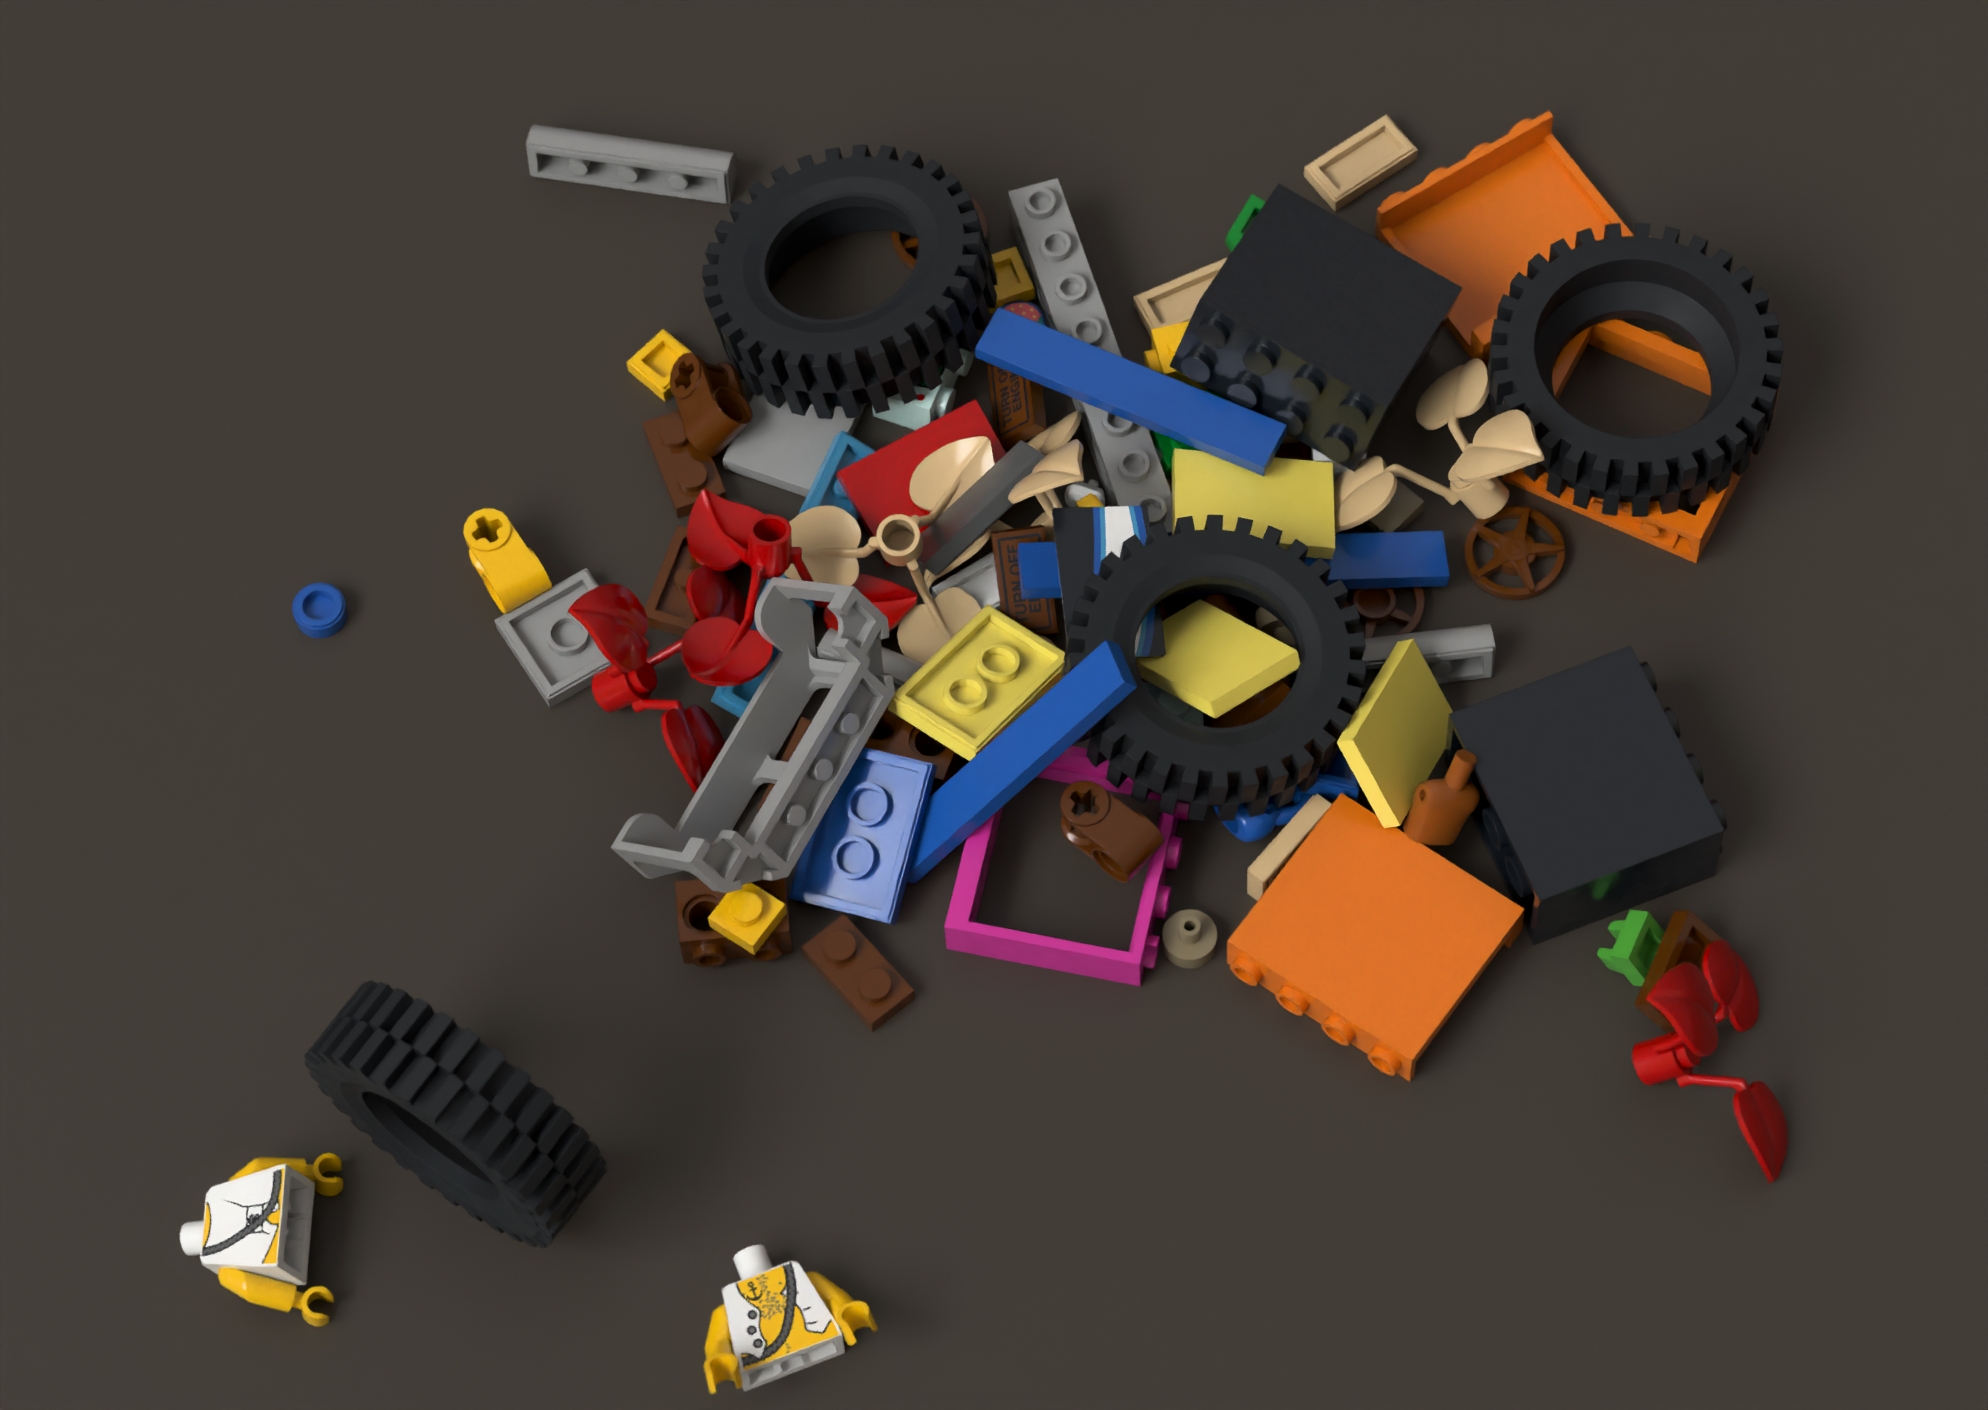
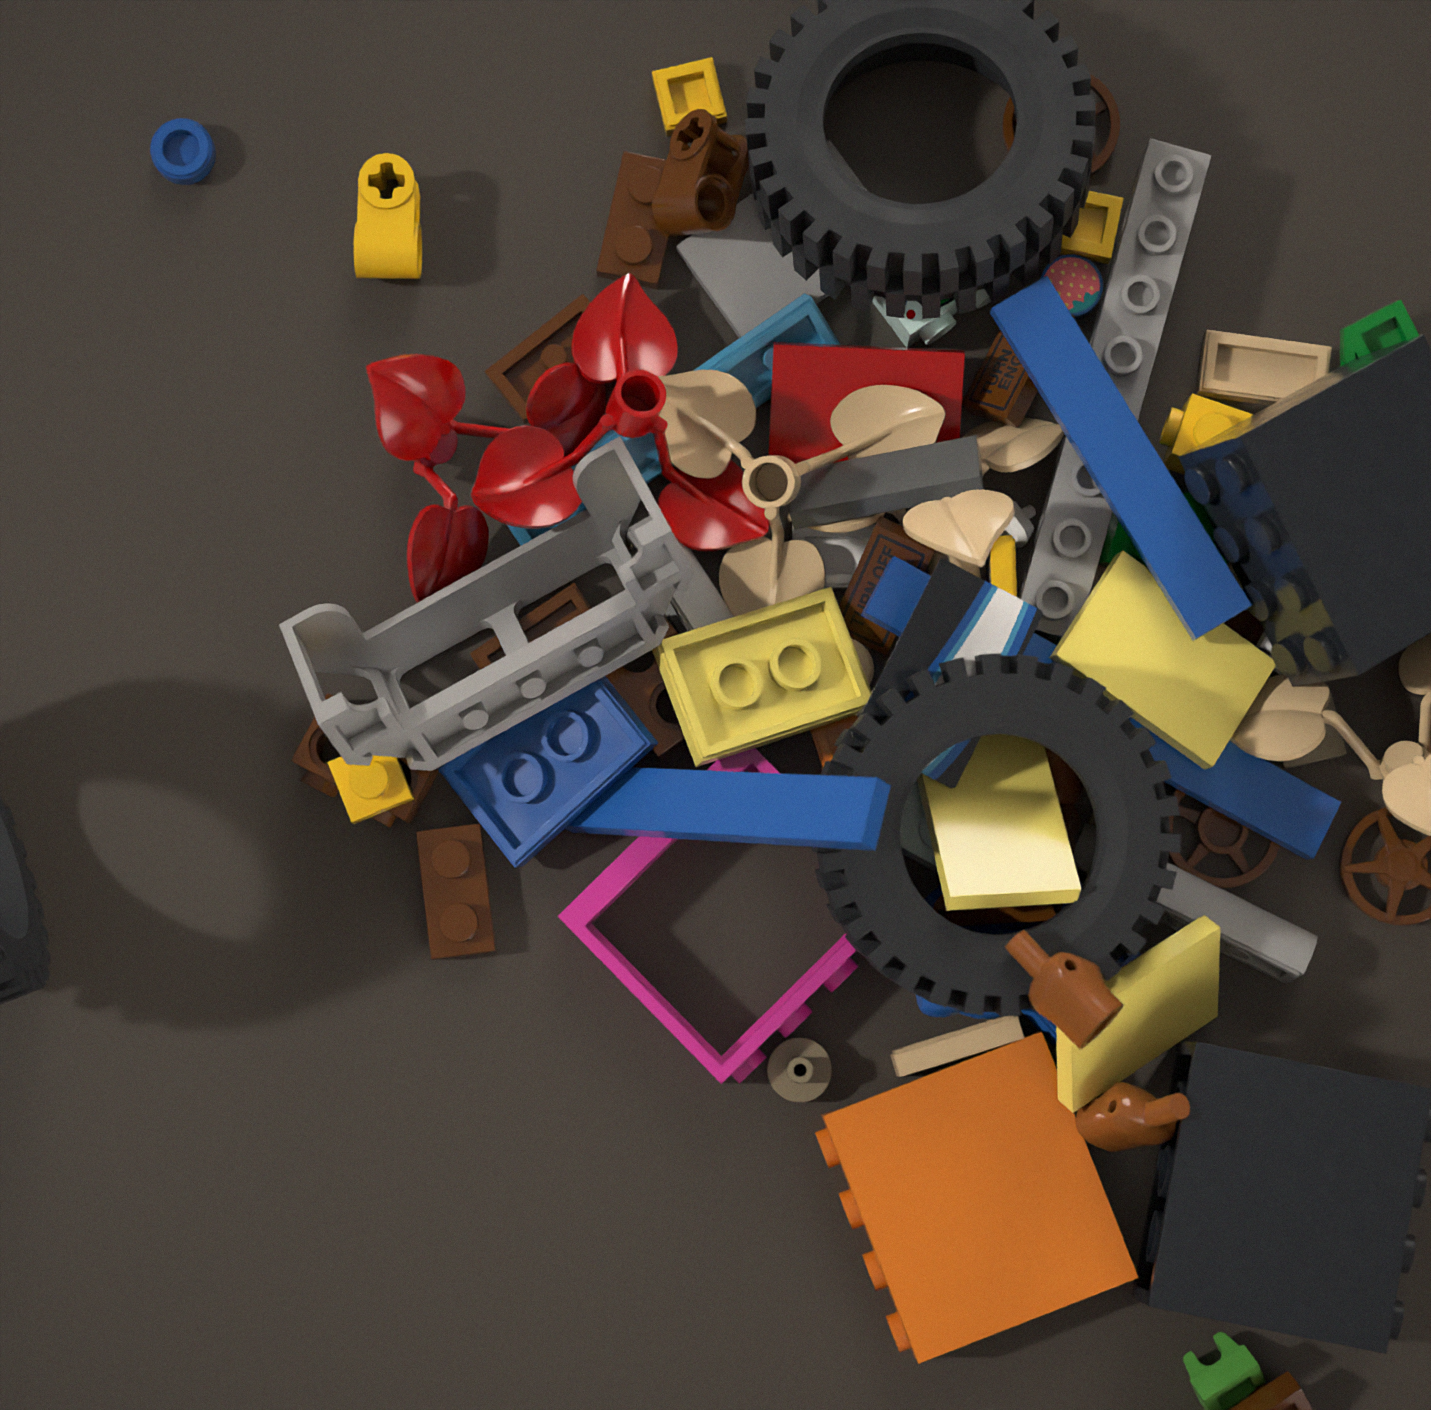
camera: 30 degrees right, 20 degrees up
(552, 642) = (399, 319): light grey tile -> none
(777, 1322) = (138, 1215): torso -> none
(1114, 836) = (781, 942): reddish brown piece -> none
(1333, 713) = (1066, 990): none -> dark orange piece

